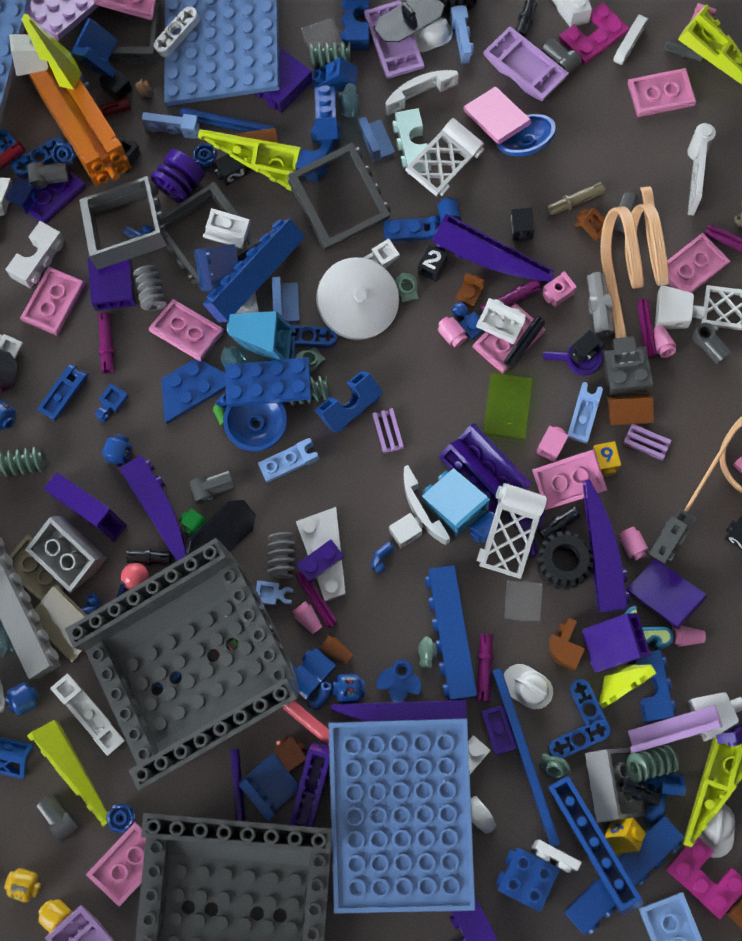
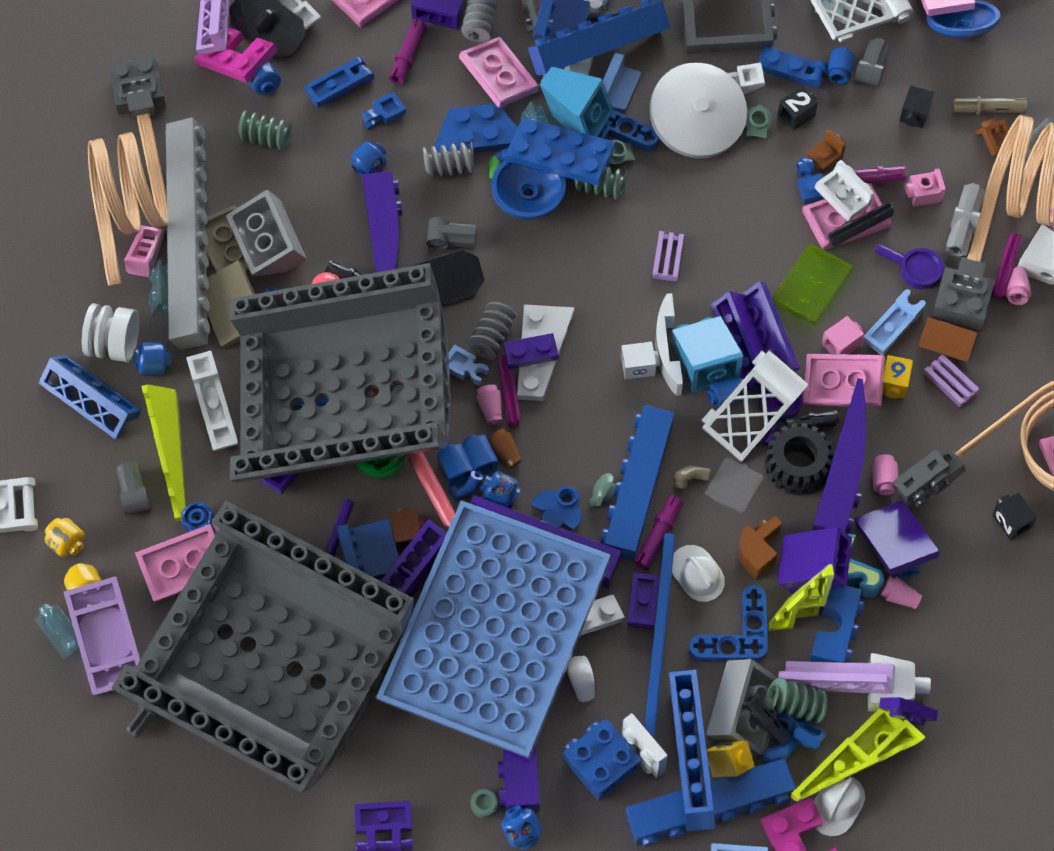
camera: 20 degrees right, 10 degrees down
(85, 506) = (309, 200): dark purple slope -> none
(181, 424) = (449, 159): none -> light grey piece
(191, 521) = (412, 255): green plate -> none
(288, 460) = (547, 242): light blue plate -> none
(363, 393) = (660, 205): blue arch -> none
(378, 557) = (596, 375): blue arm -> none
(452, 331) = (786, 184): bright pink brick -> none
(472, 206) = (871, 67): none -> dark grey piece
(485, 607) = (688, 473): none -> dark tan arm
(486, 251) = (859, 114): dark purple slope -> none
(554, 766) = (687, 659): sand green animal -> none
(586, 347) = (926, 254): black brick -> none

